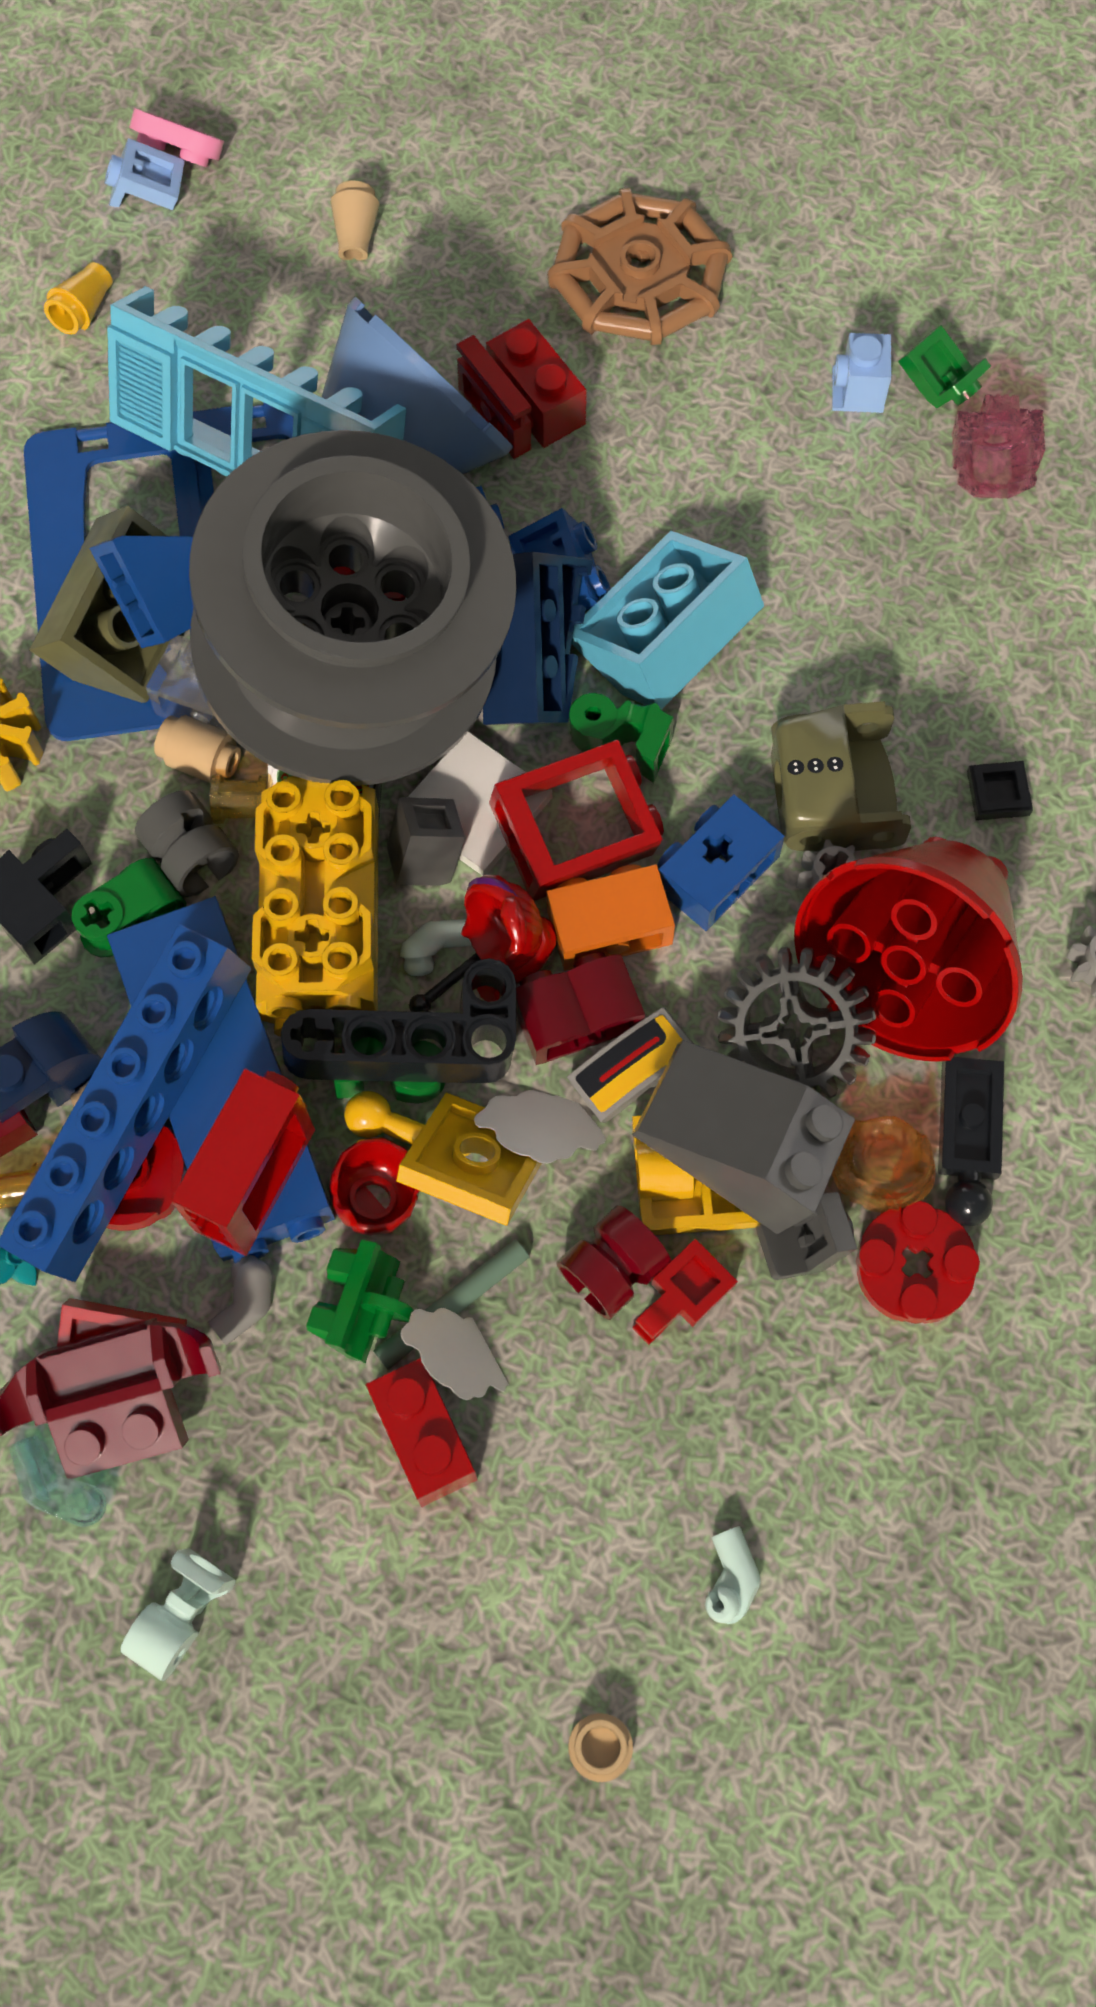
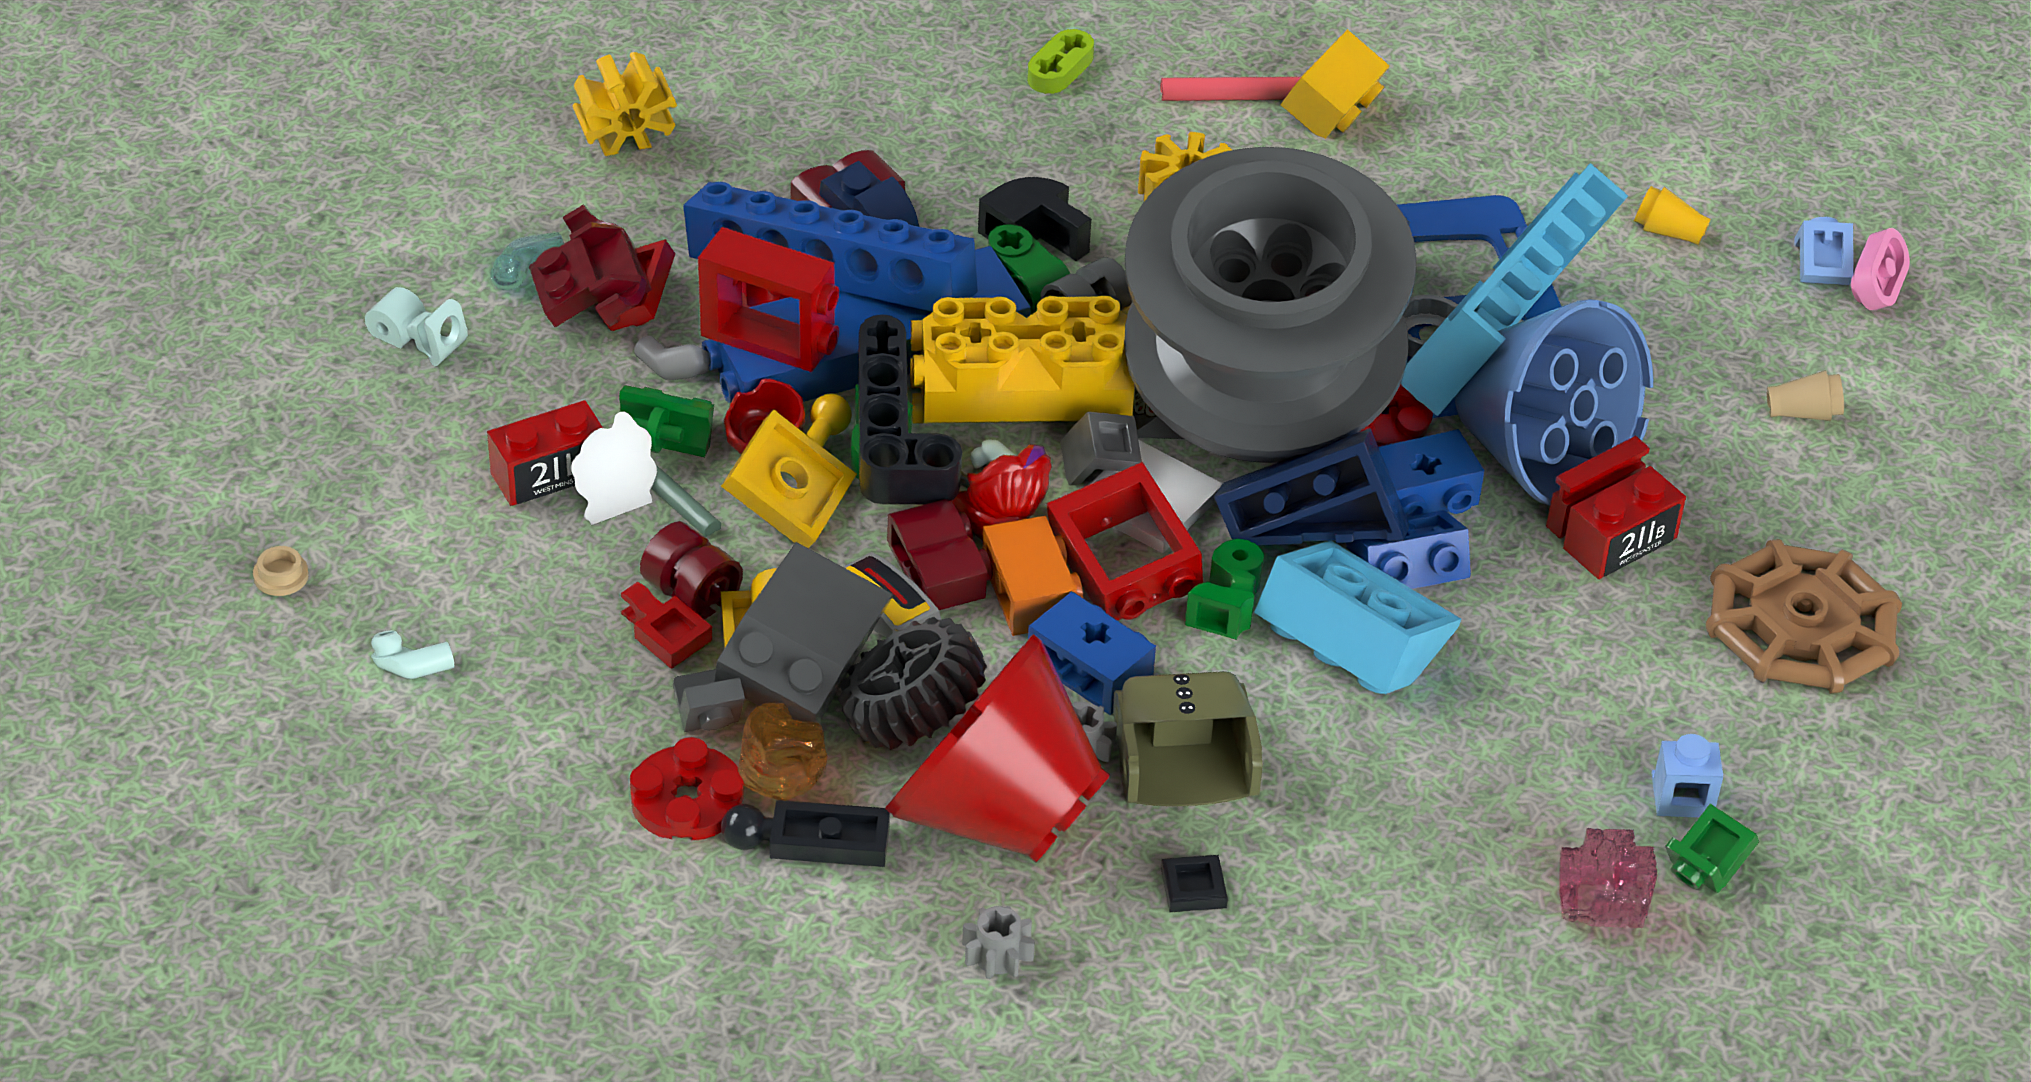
camera: 85 degrees right, 25 degrees down
(540, 1125) = (824, 524): white sticker -> none

